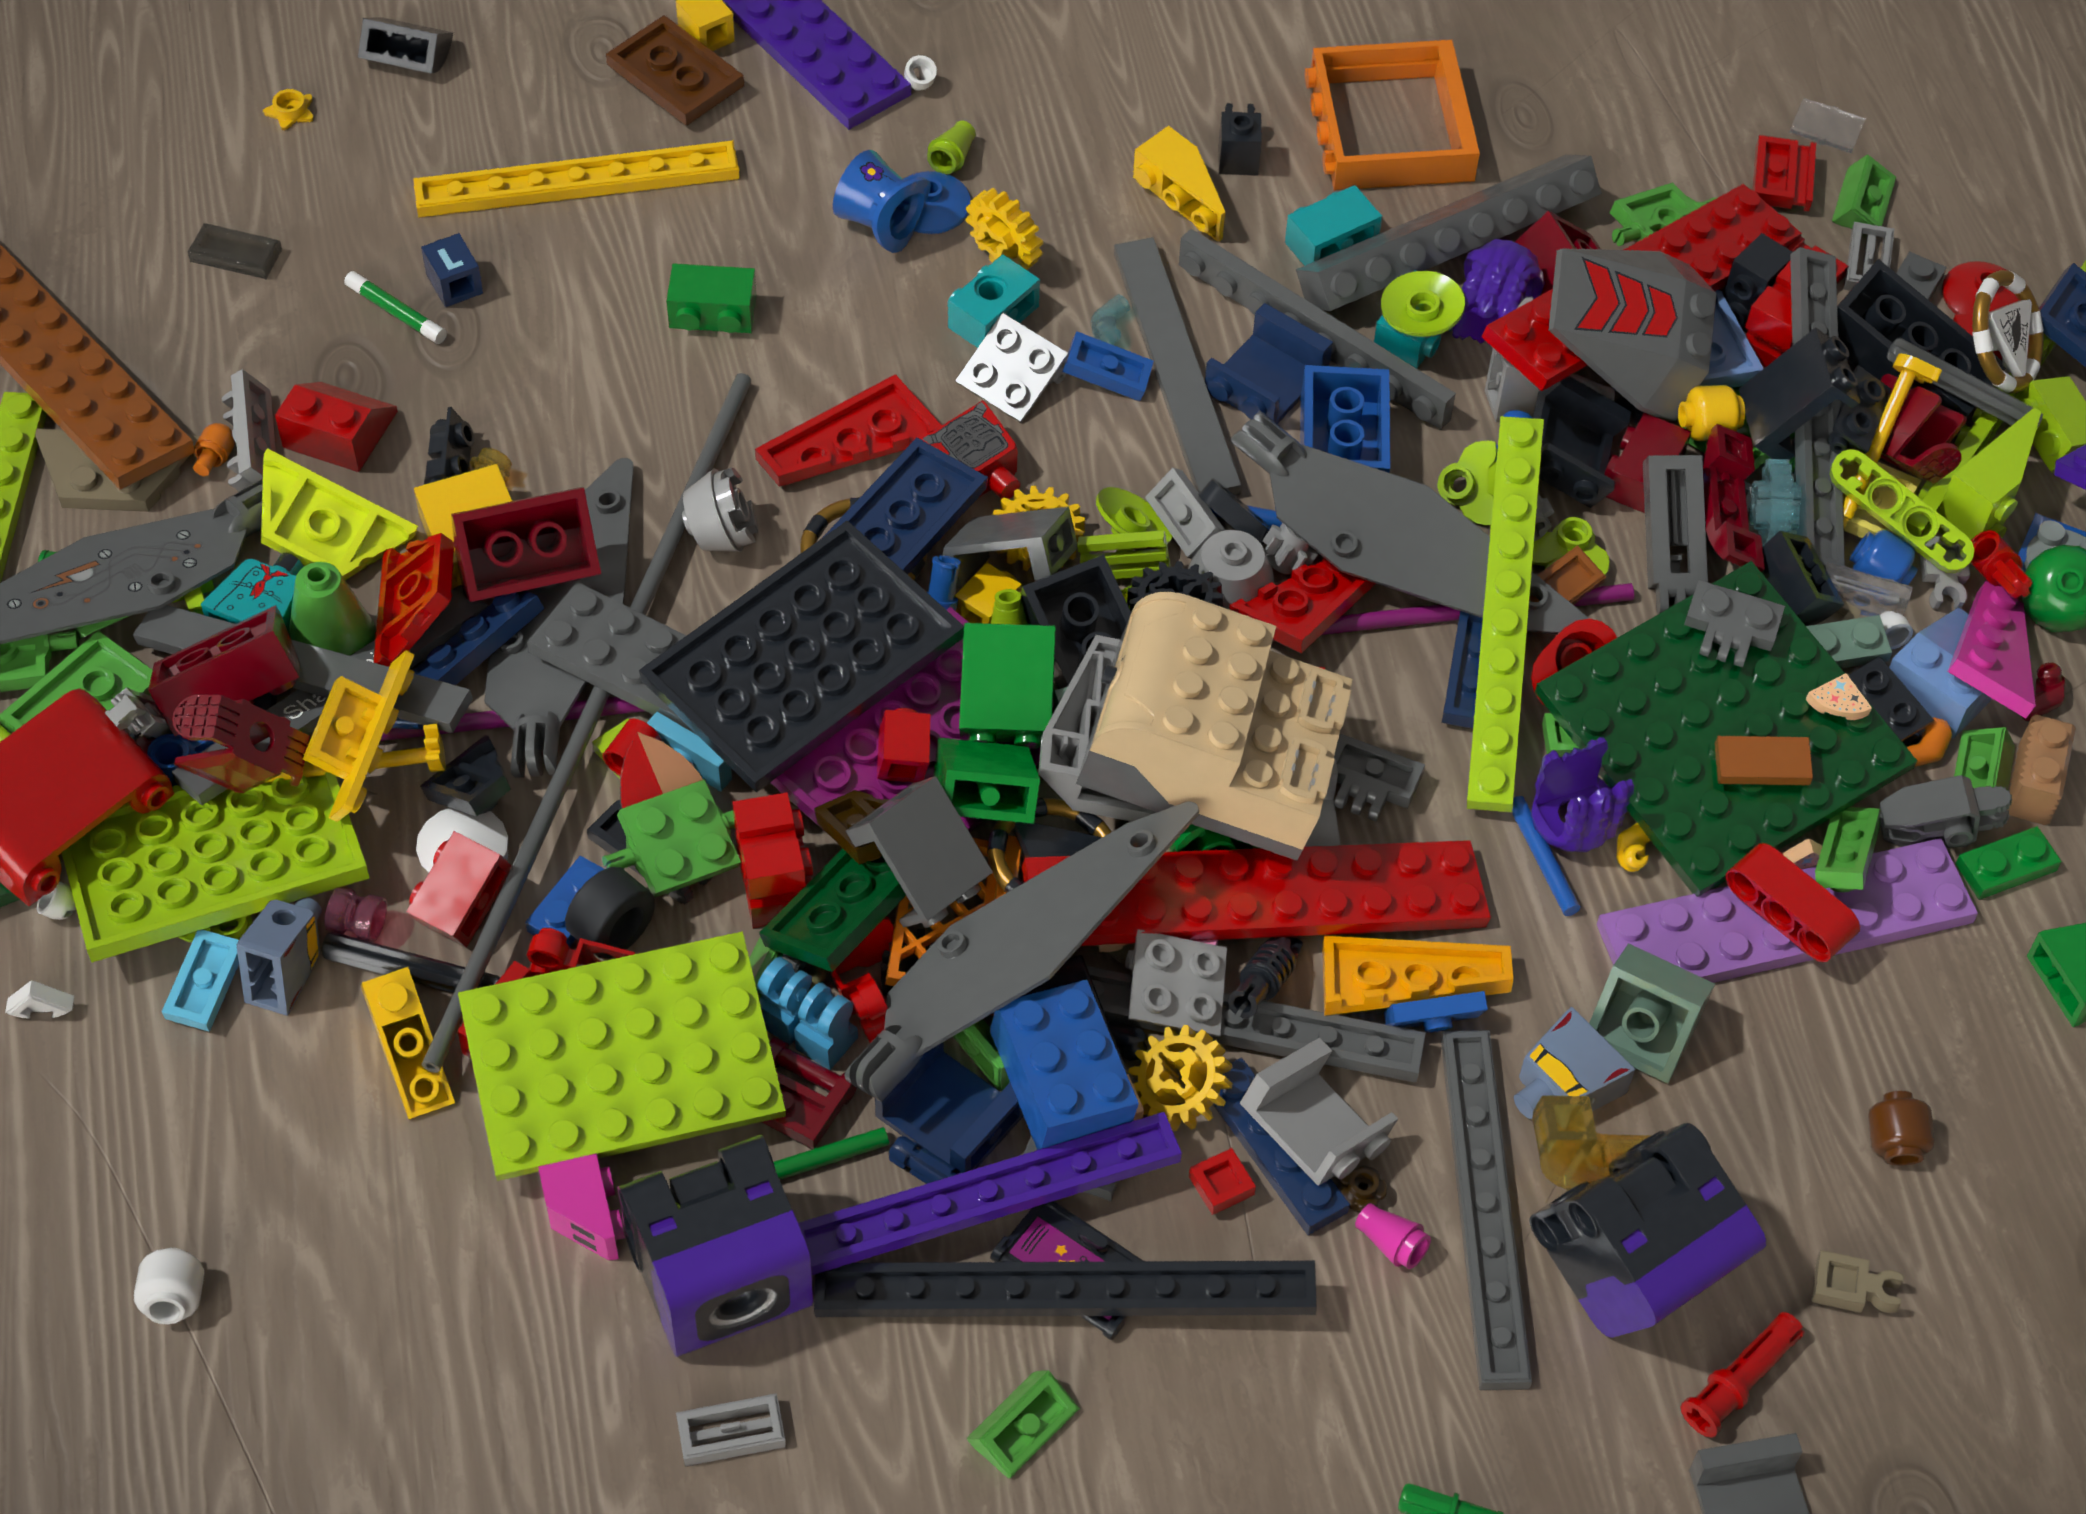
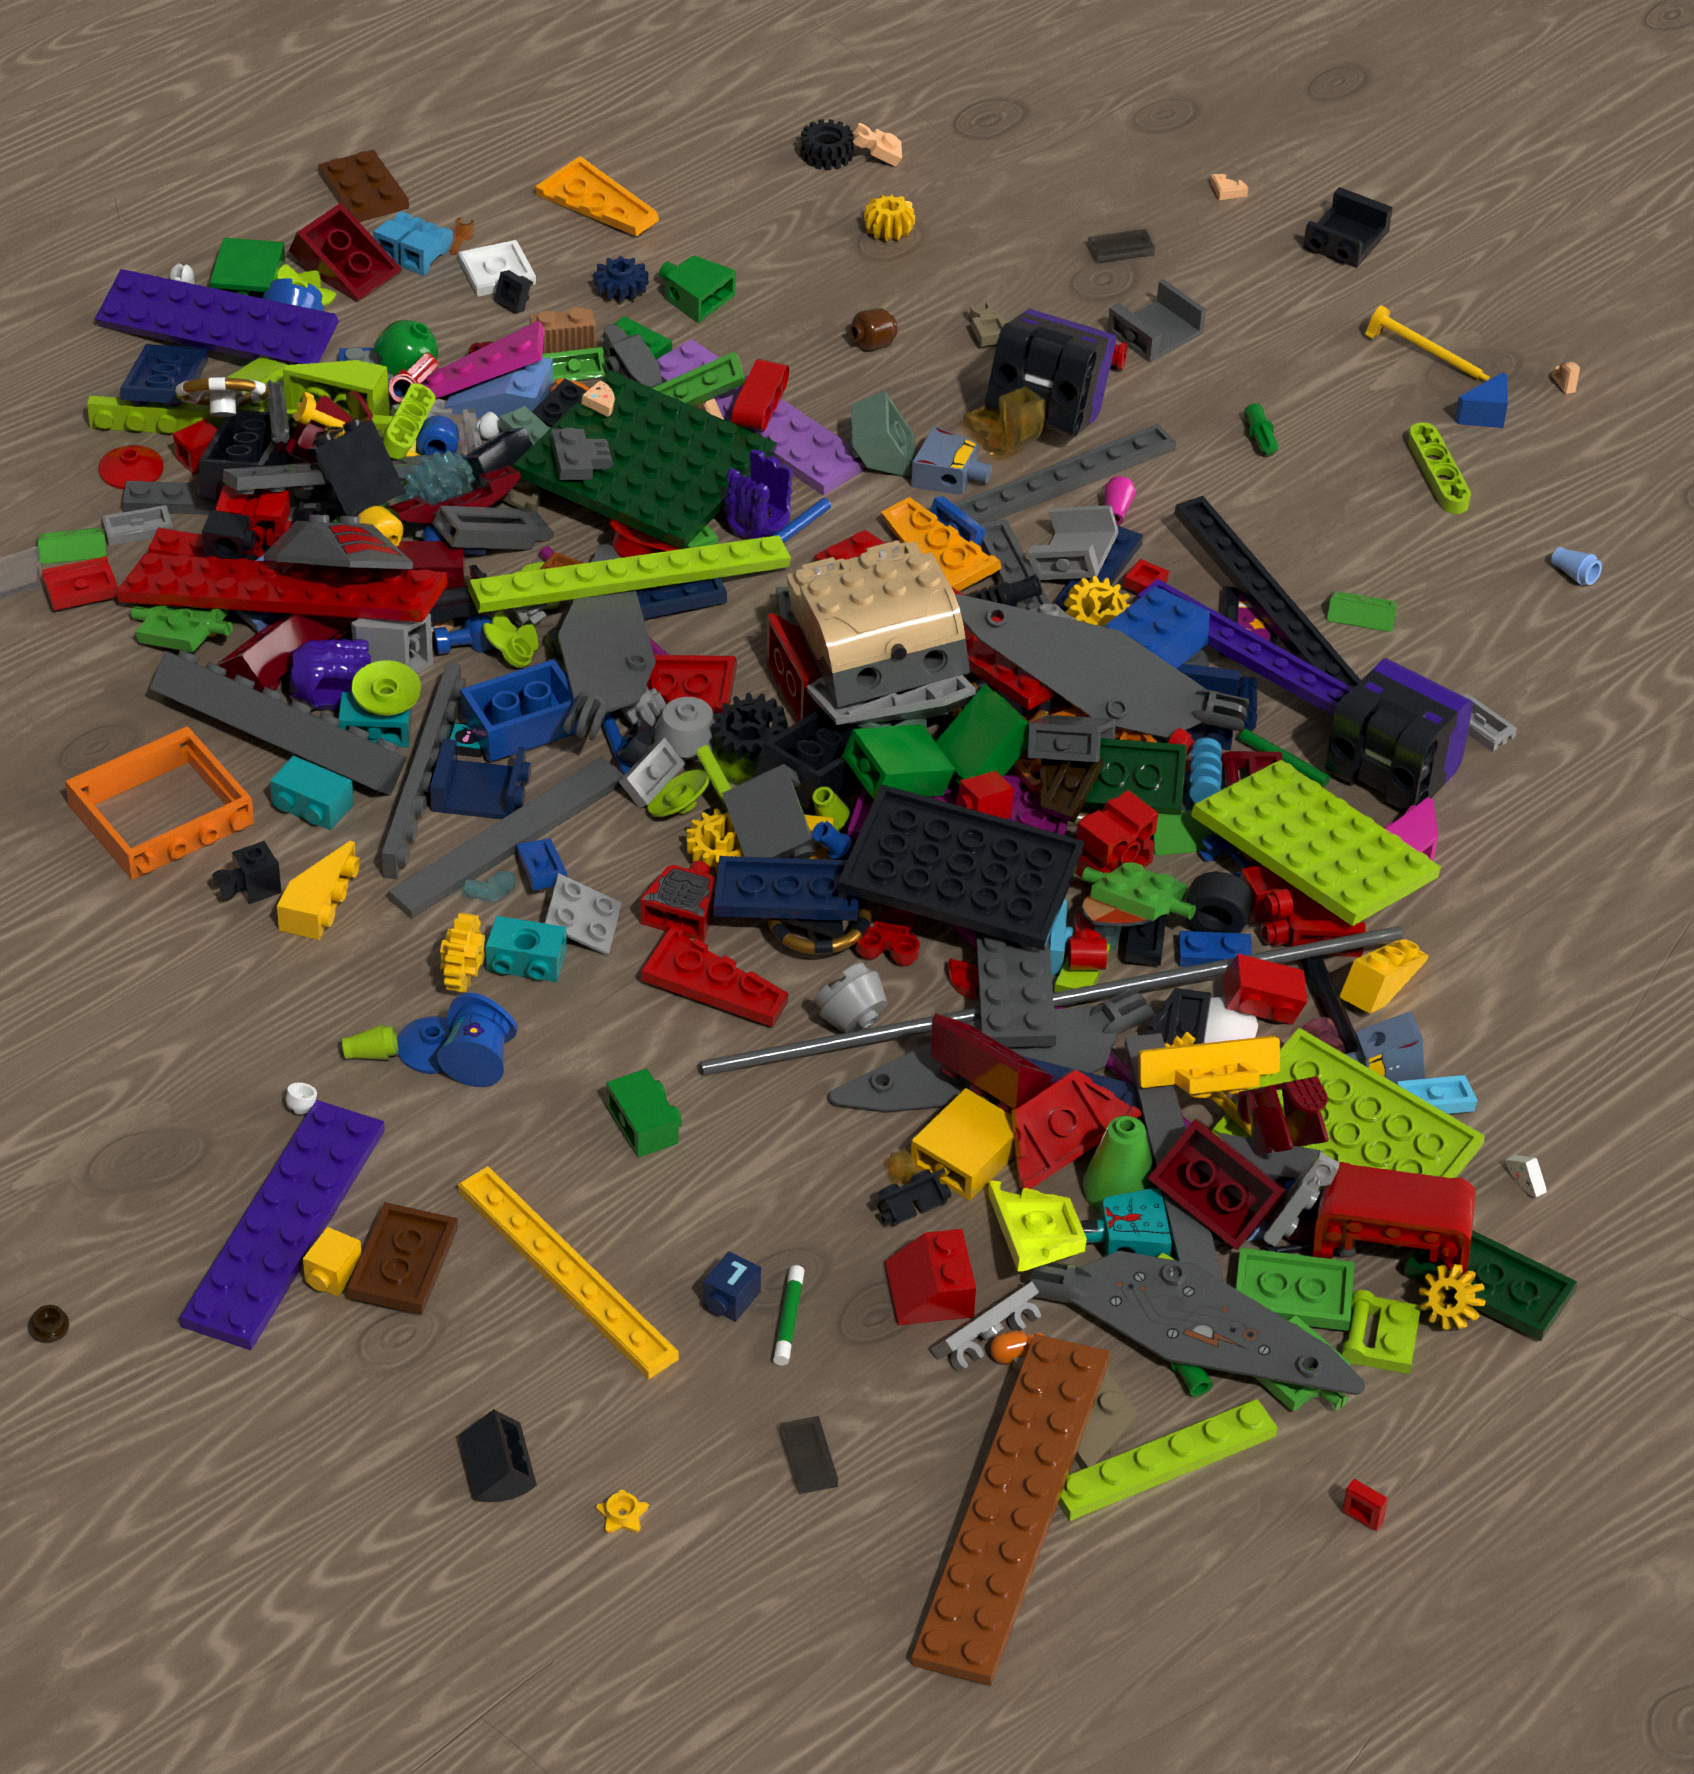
camera: 120 degrees left, 10 degrees down
(169, 1285) = (1639, 994): white head -> none
(1763, 760) = (671, 422): dark orange tile -> none

